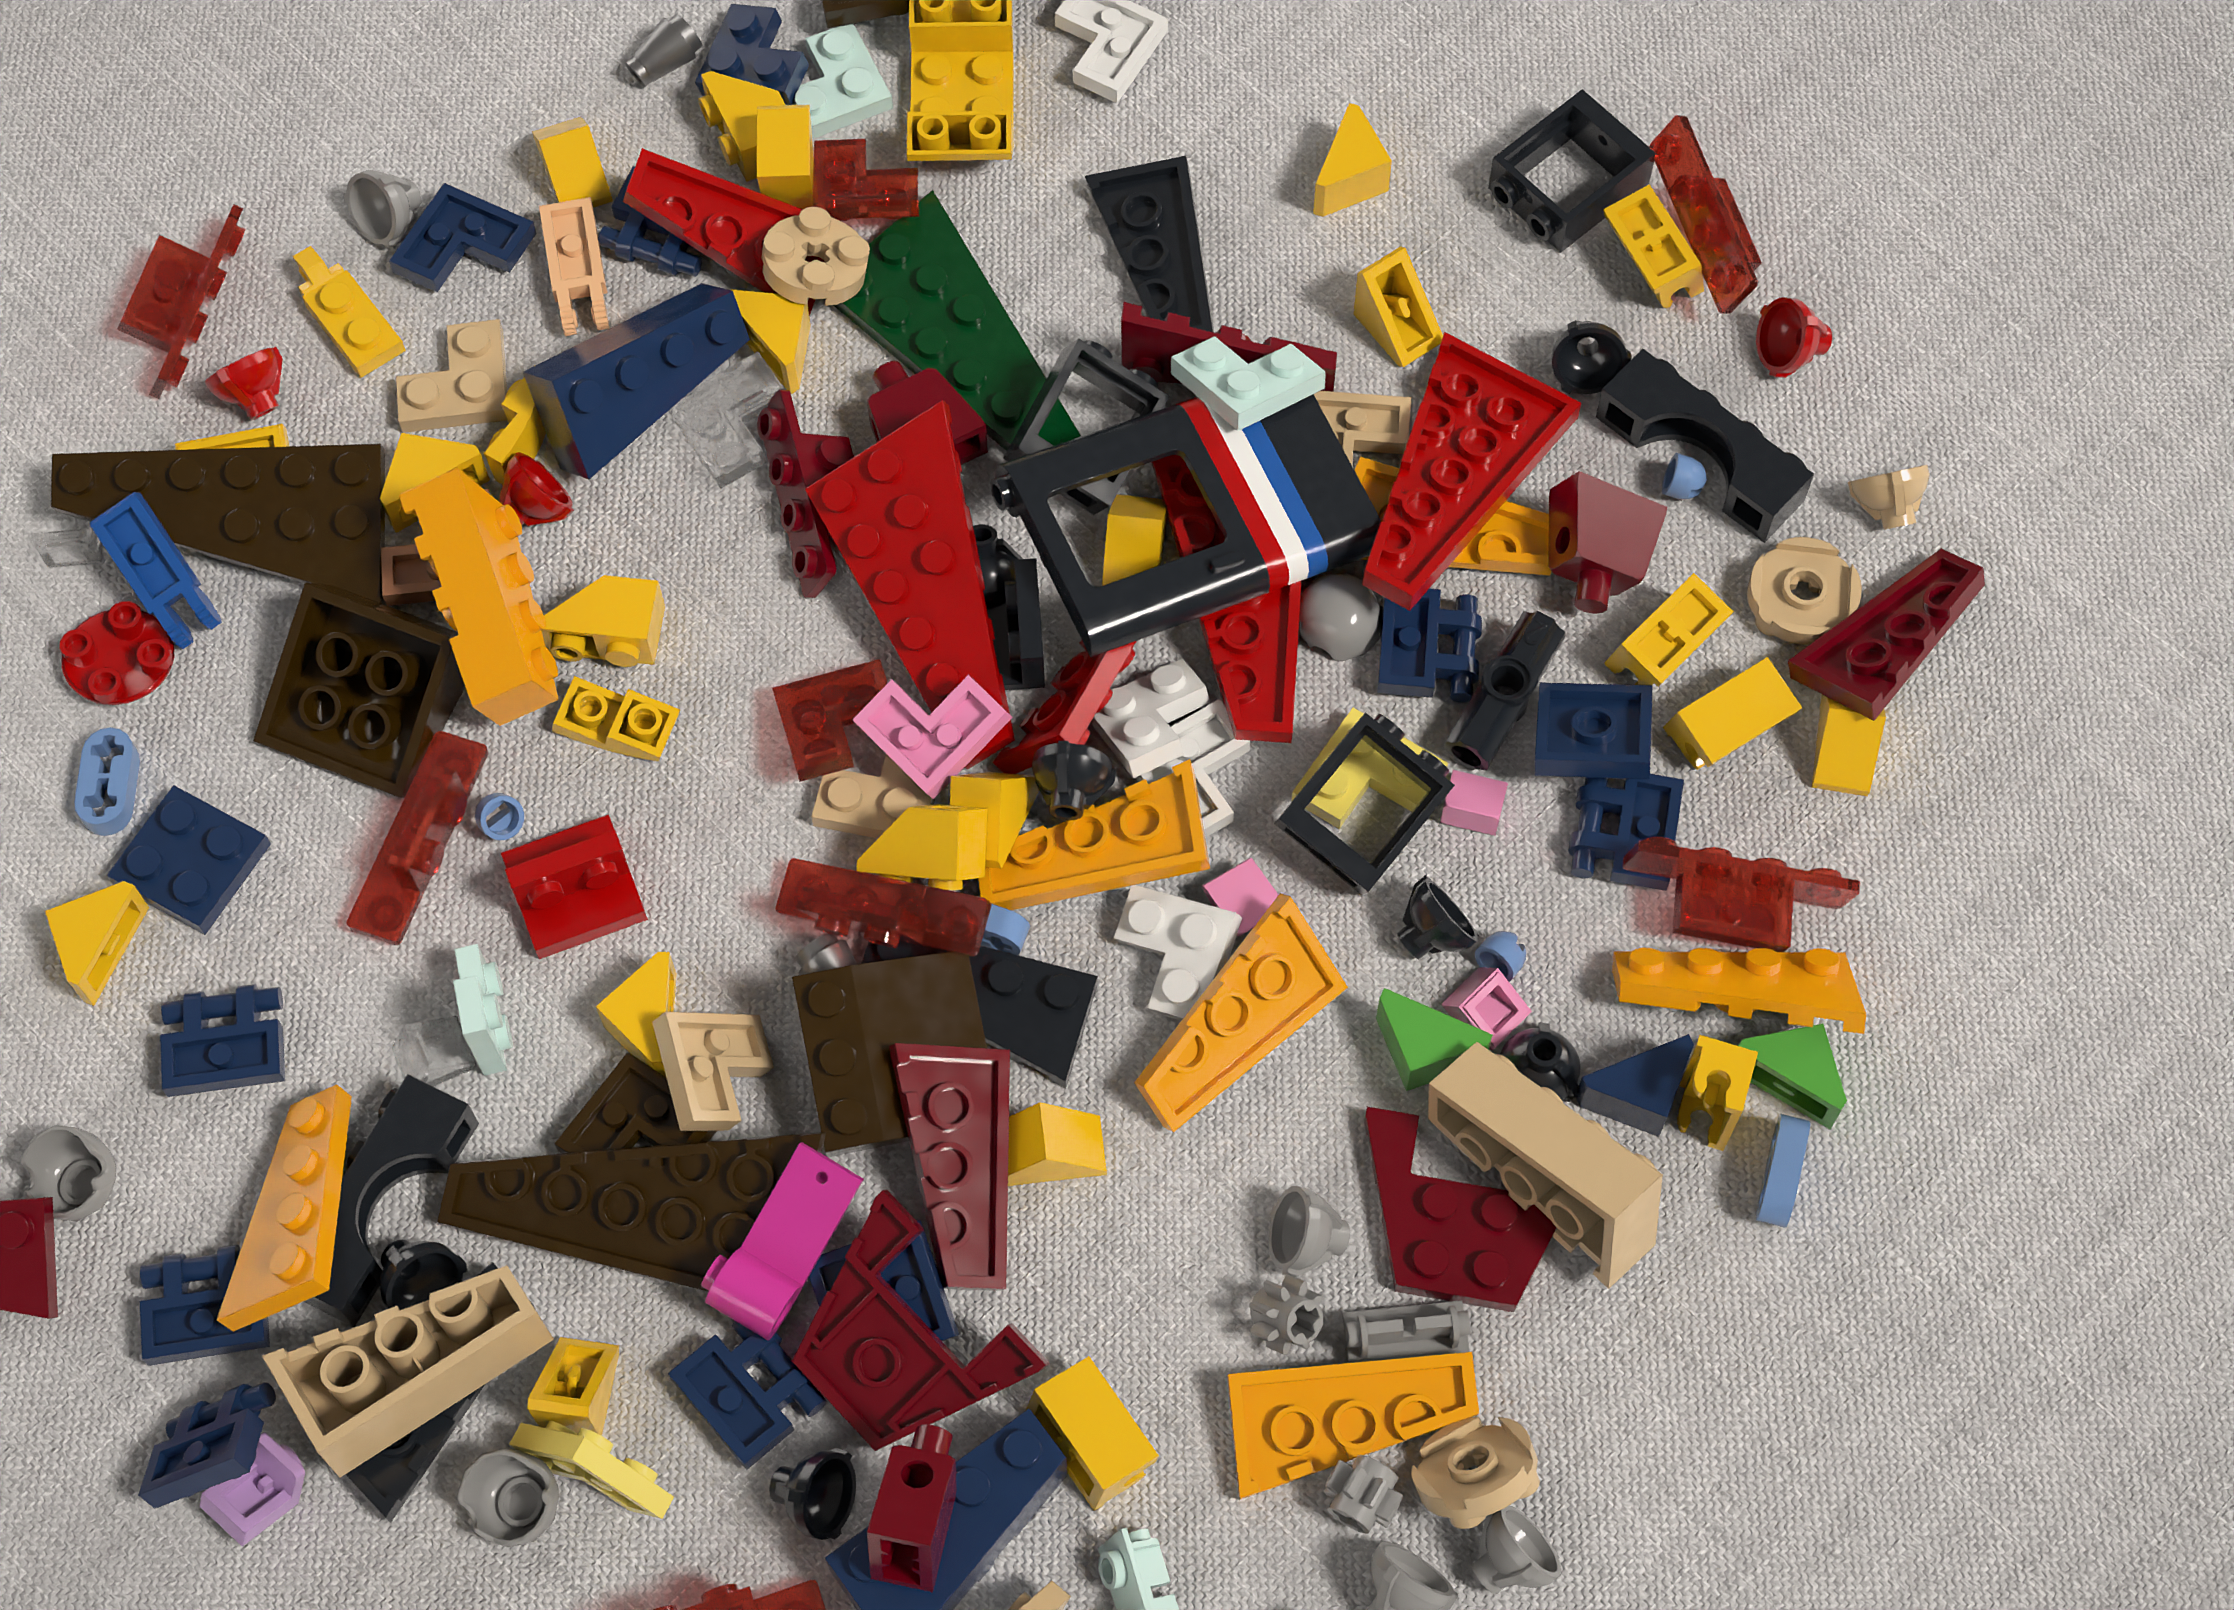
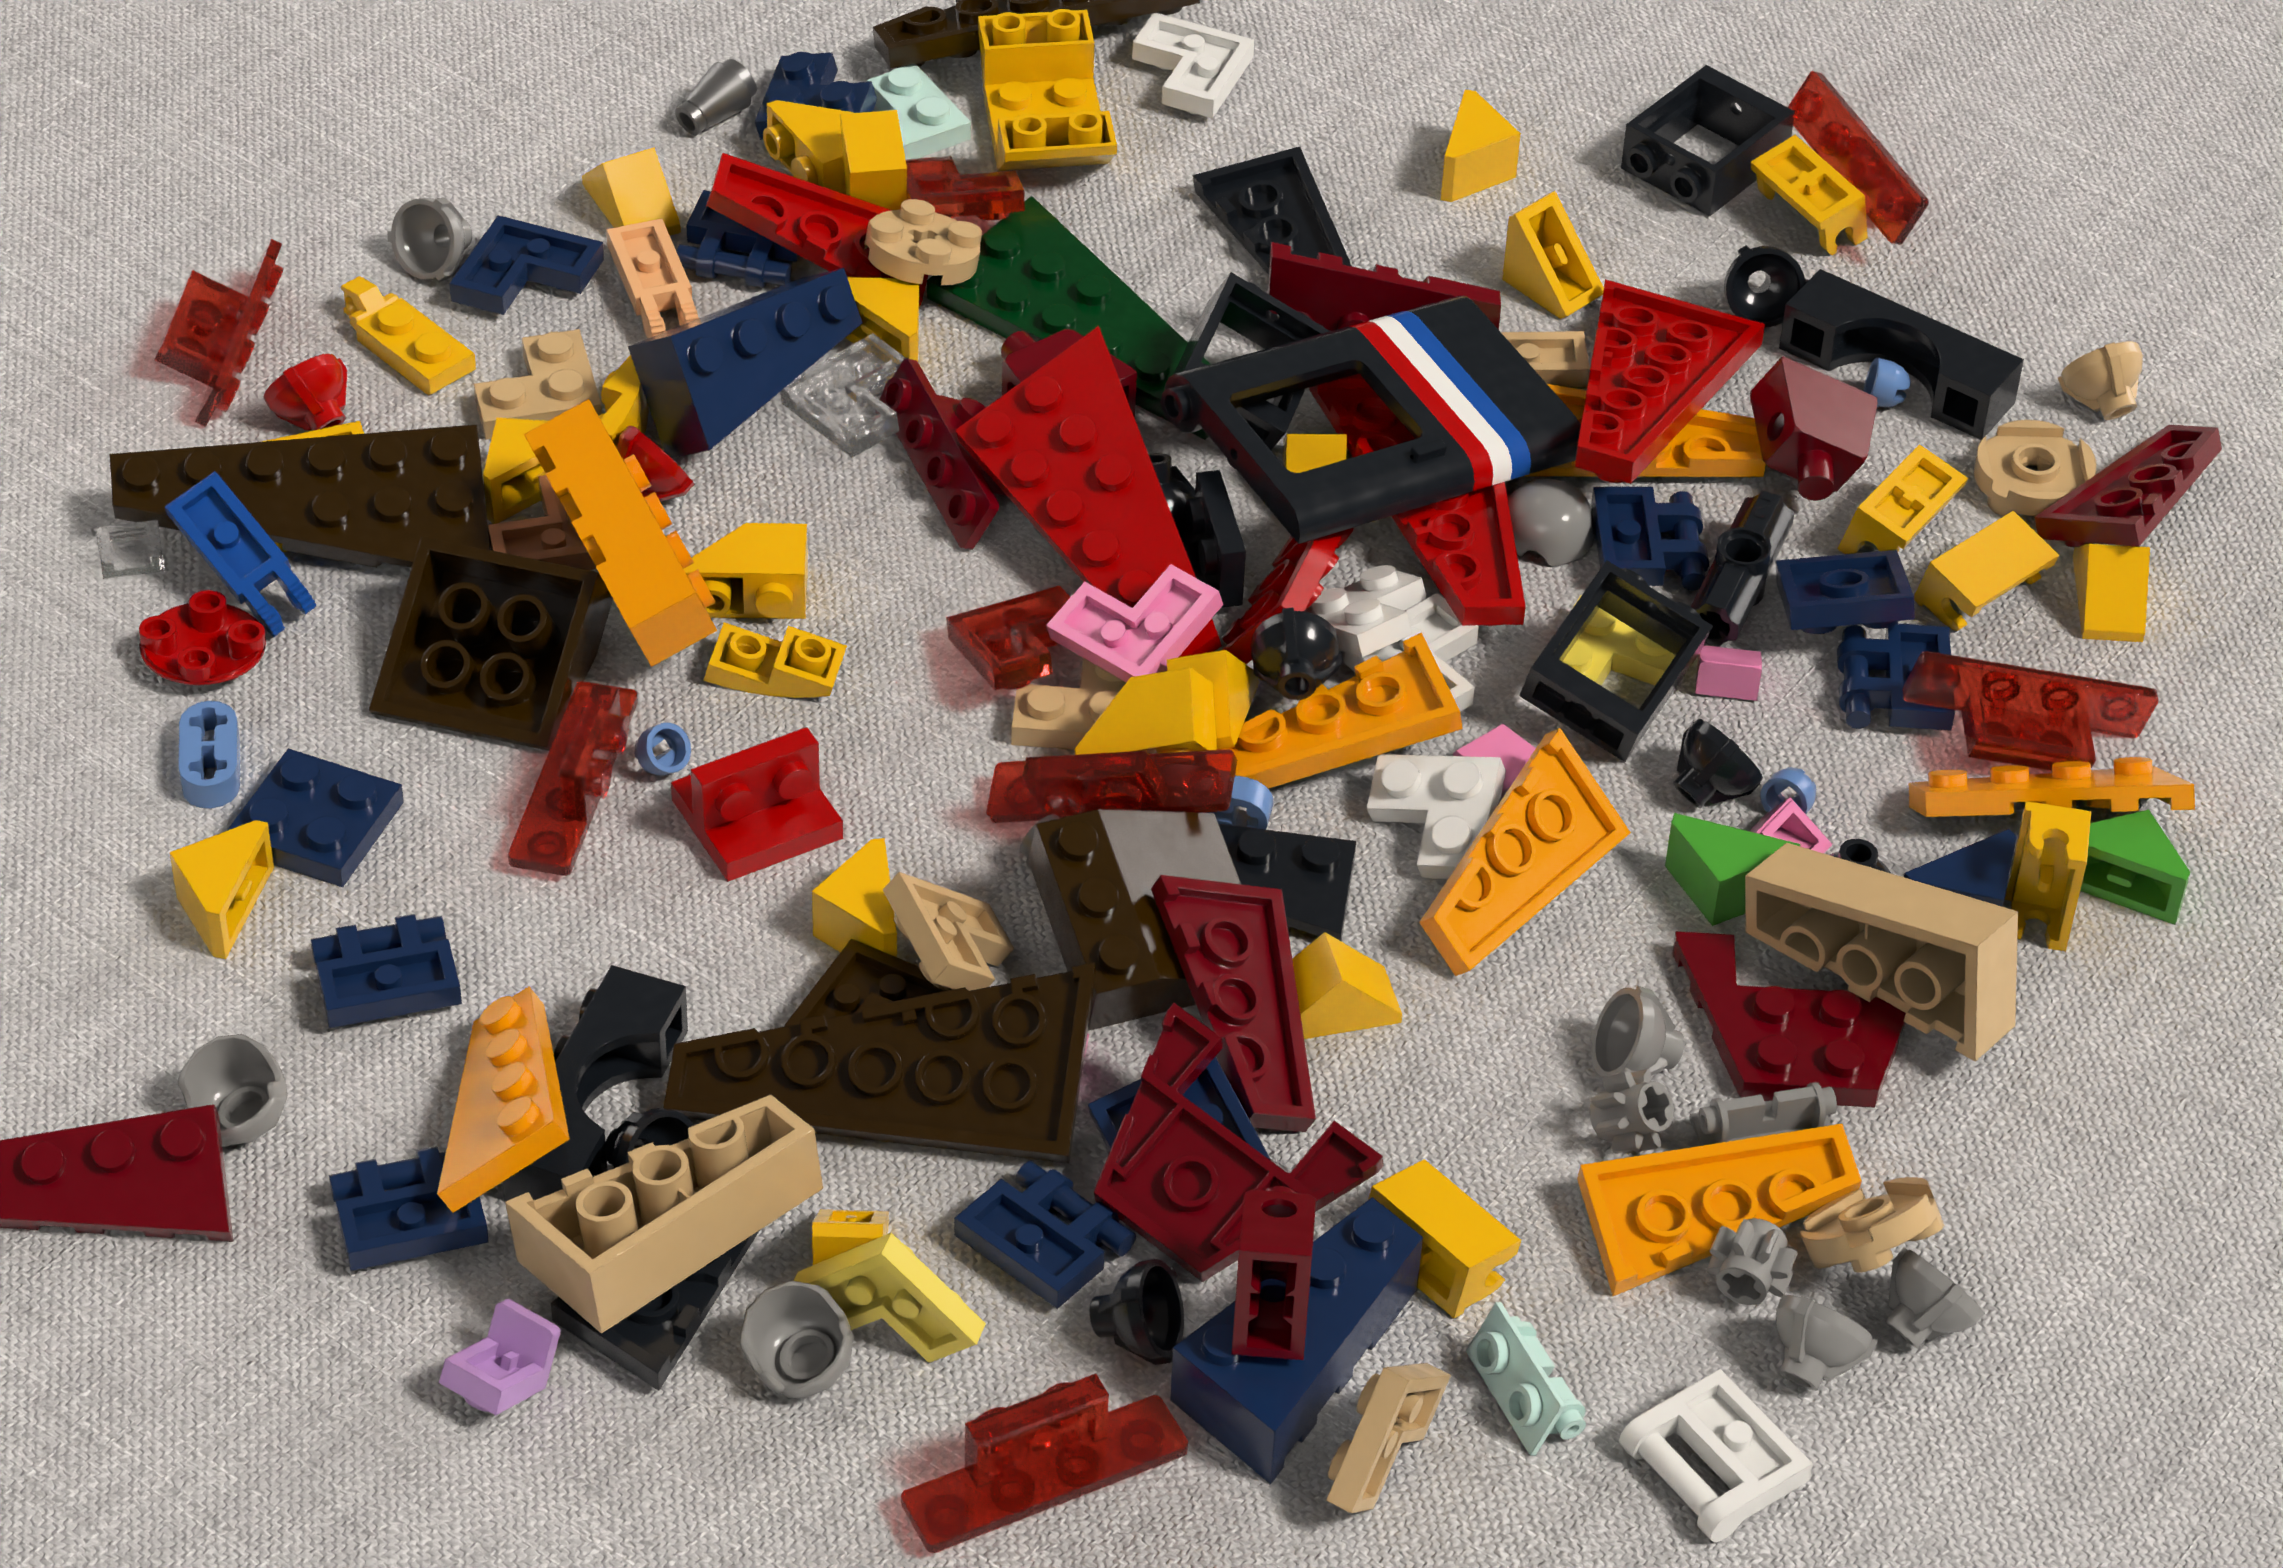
camera: 10 degrees left, 20 degrees down
(207, 1445) = (435, 1318): dark blue plate -> none
(433, 1050) = (622, 950): clear slope -> none
(479, 1010) = (679, 904): light aqua plate -> none
(783, 1244) = (1068, 1075): dark pink door -> none
(1242, 390) = (1414, 307): light aqua plate -> none
(1783, 1170) = (2135, 951): medium blue beam -> none
(1790, 336) = (1969, 258): red piece -> none

